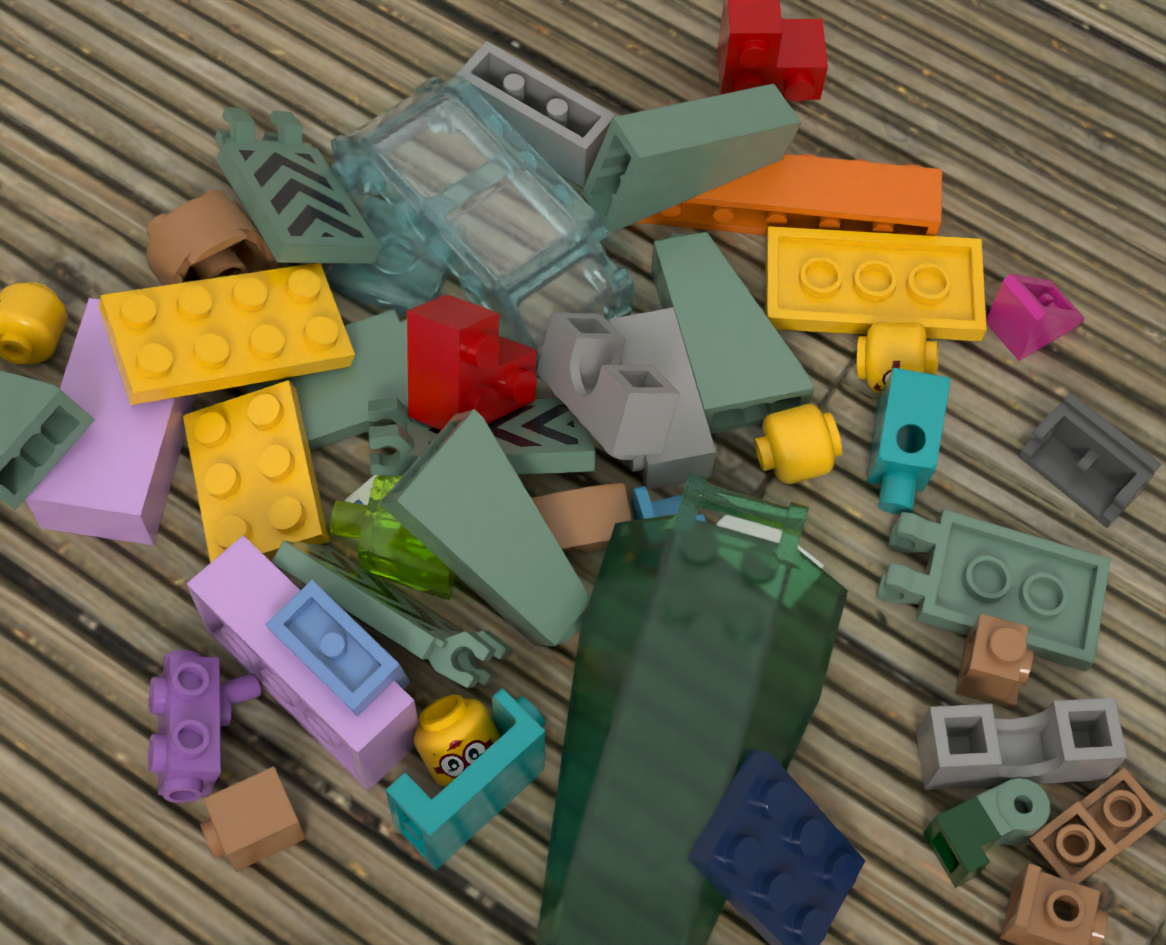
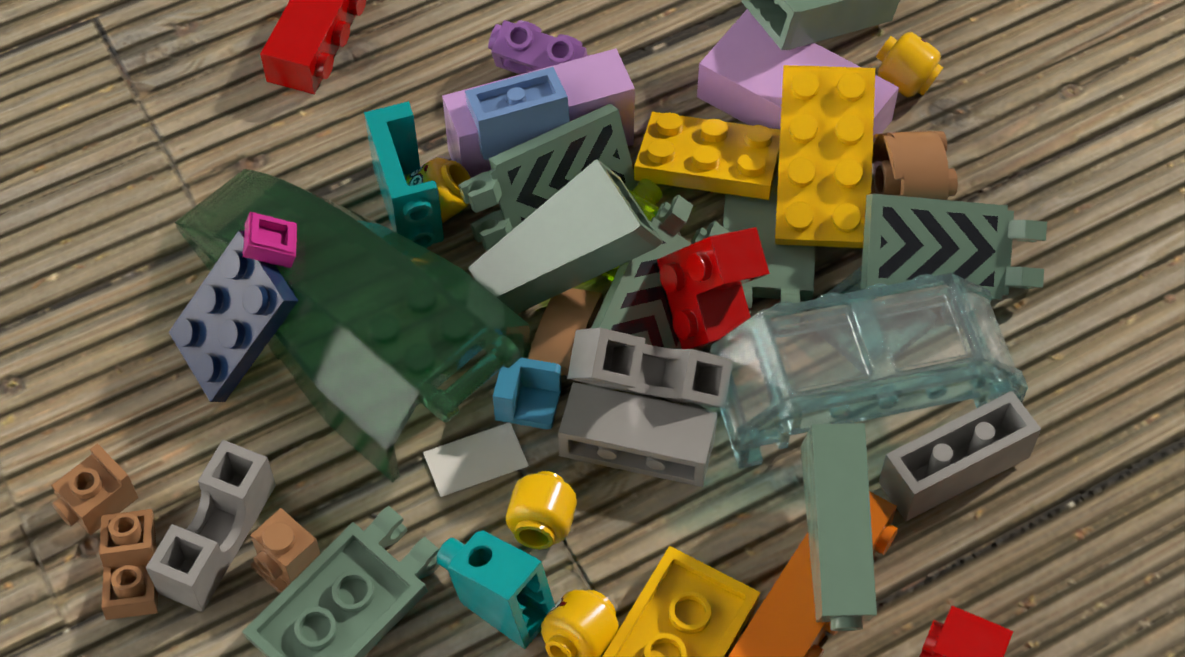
camera: 120 degrees right, 5 degrees down
(251, 820) = (457, 66): medium nougat brick -> none
(696, 819) = (270, 240): none -> dark pink tile
(731, 344) = (663, 501): sand green slope -> none
(996, 817) = (178, 493): leg -> none

